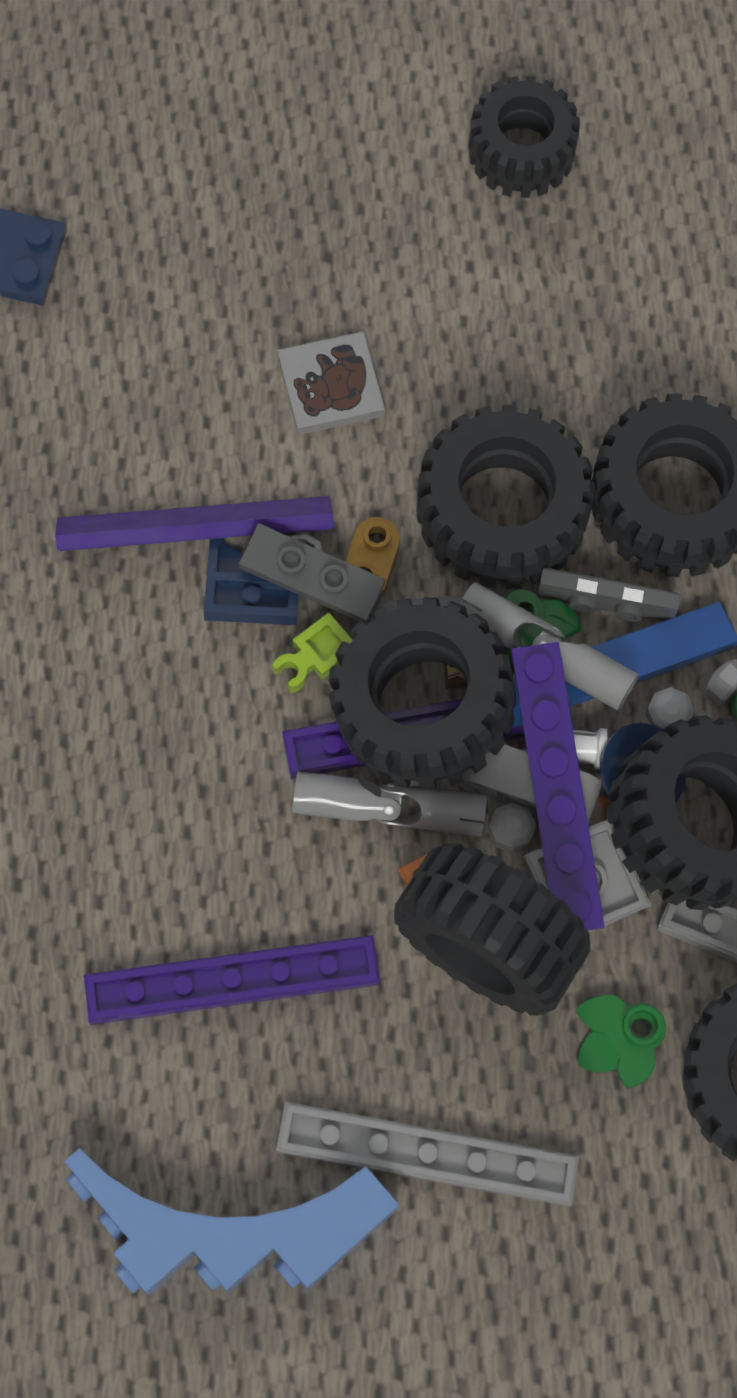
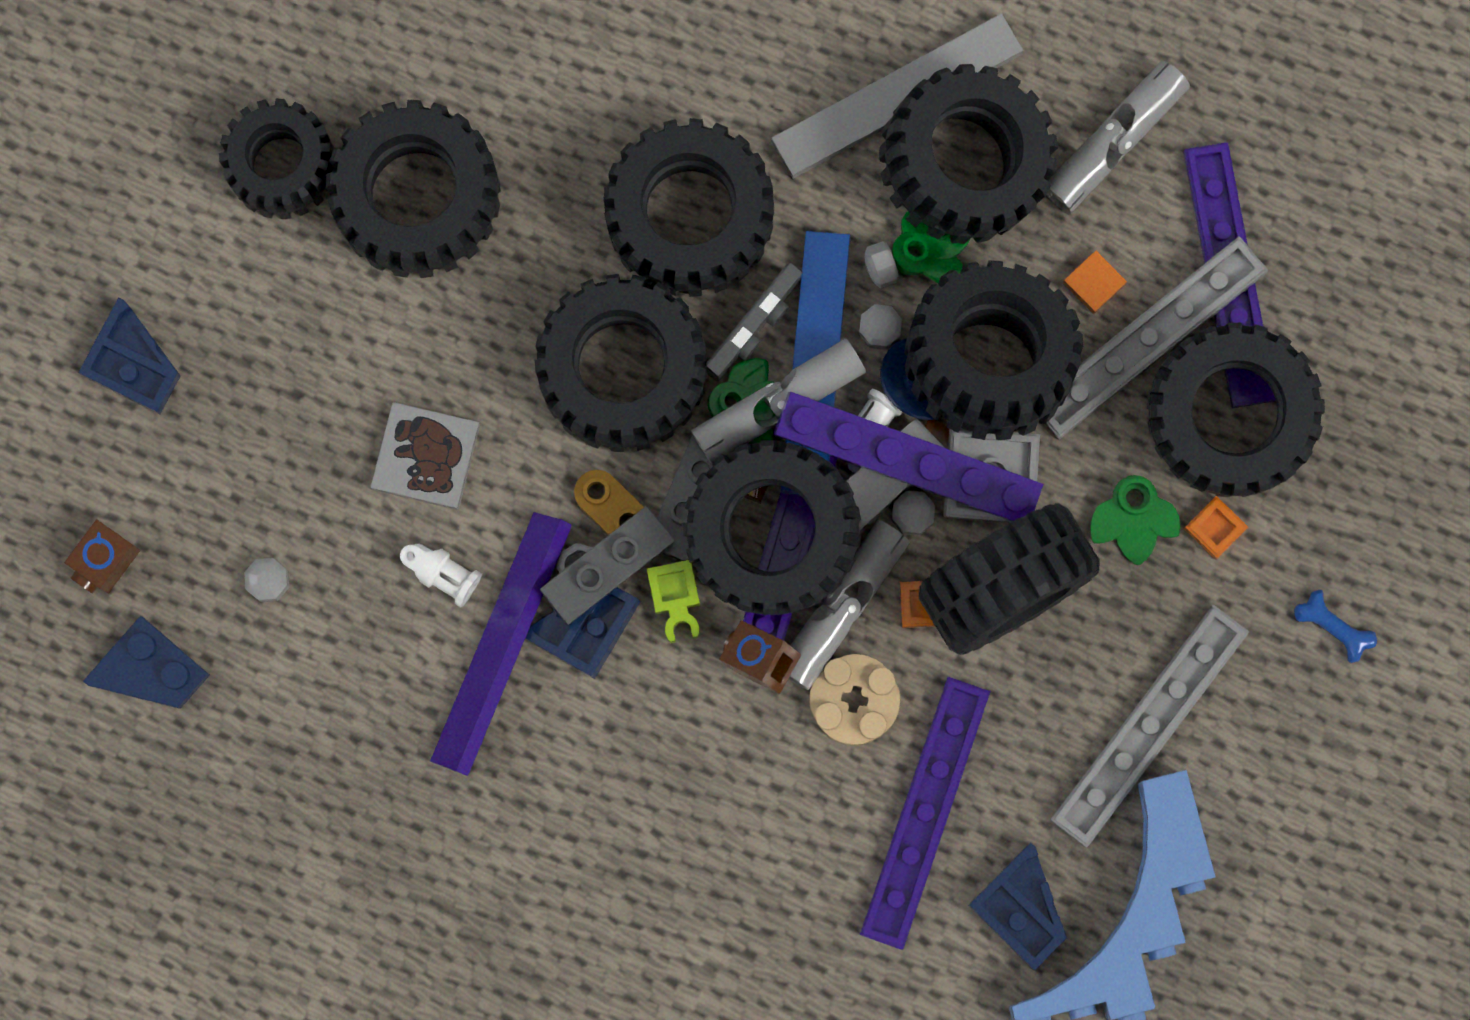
camera: 55 degrees left, 10 degrees up
(98, 167) = (100, 558): none -> reddish brown brick
(150, 308) = (266, 579): none -> light grey tile
(184, 1117) = (1022, 909): none -> dark blue wing
(232, 438) = (435, 567): none -> white piece
(283, 111) = (130, 361): none -> dark blue wing
(291, 883) = (832, 713): none -> tan plate
(297, 746) = (759, 656): none -> reddish brown brick
(571, 203) = (404, 133): none -> black tyre
(620, 1316) = (1353, 639): none -> blue piece
(656, 1122) = (1215, 527): none -> orange tile

